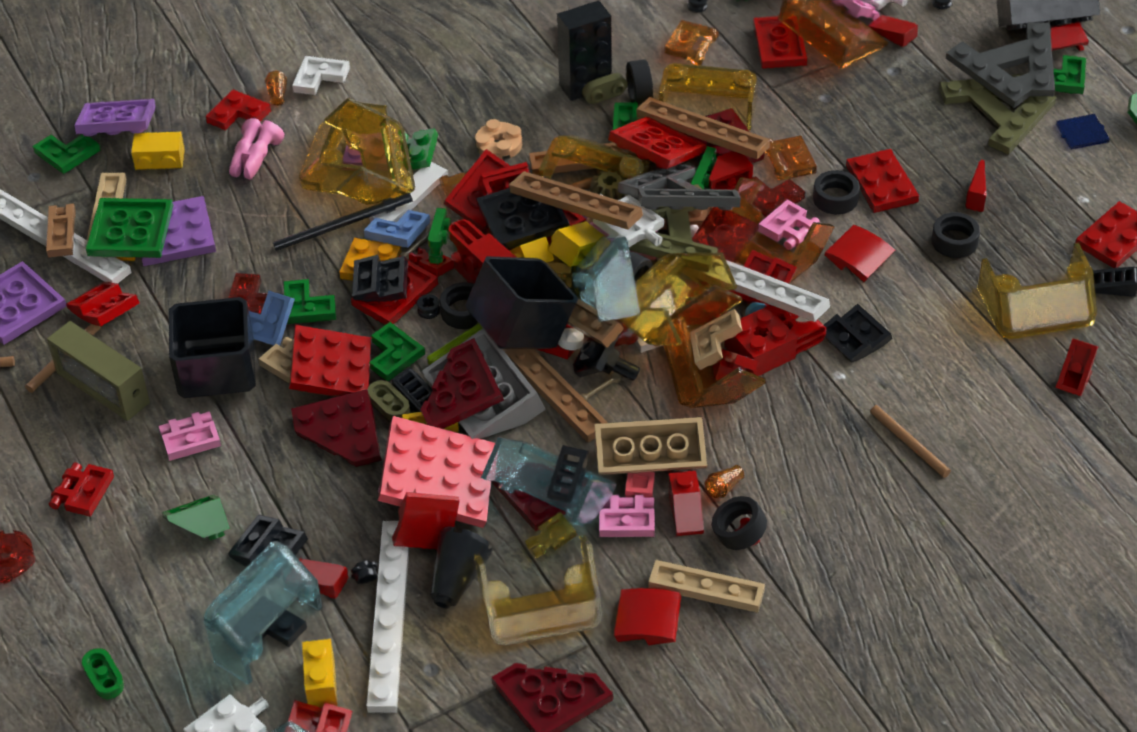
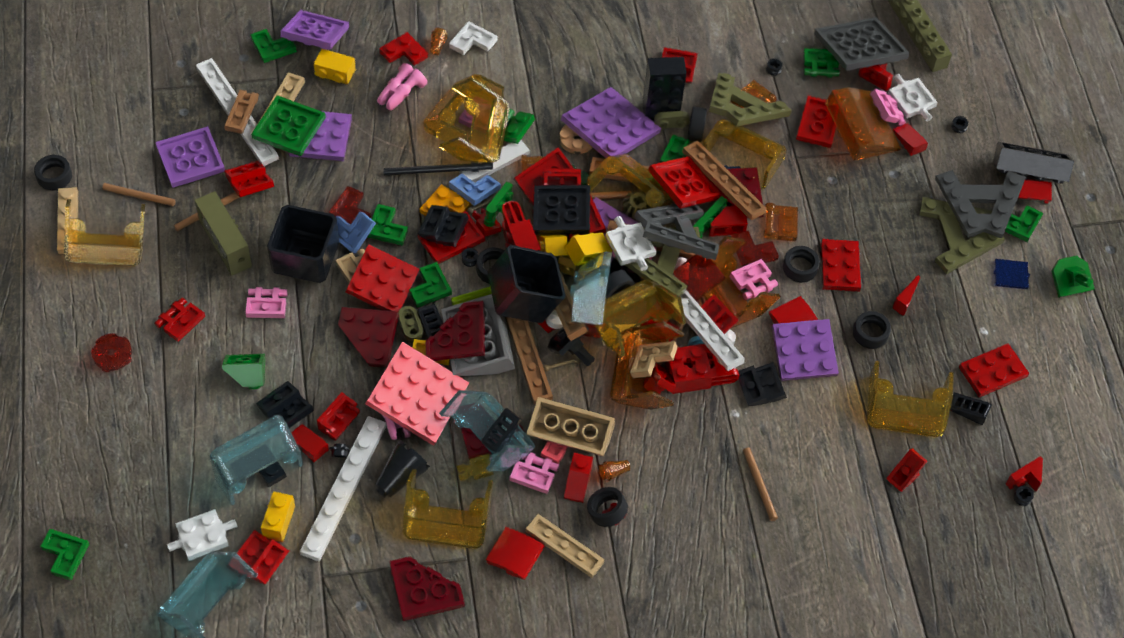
camera: 15 degrees right, 10 degrees up
(104, 675) = (140, 465): green plate -> none
(344, 534) = (338, 416): none -> red hinge
(423, 518) = (391, 428): red slope -> none
(533, 112) = (610, 123): none -> medium lavender plate
(576, 200) = (598, 216): medium nougat plate -> none
(682, 47) = (754, 108): none -> olive plate
(888, 279) = (805, 350): none -> medium lavender plate

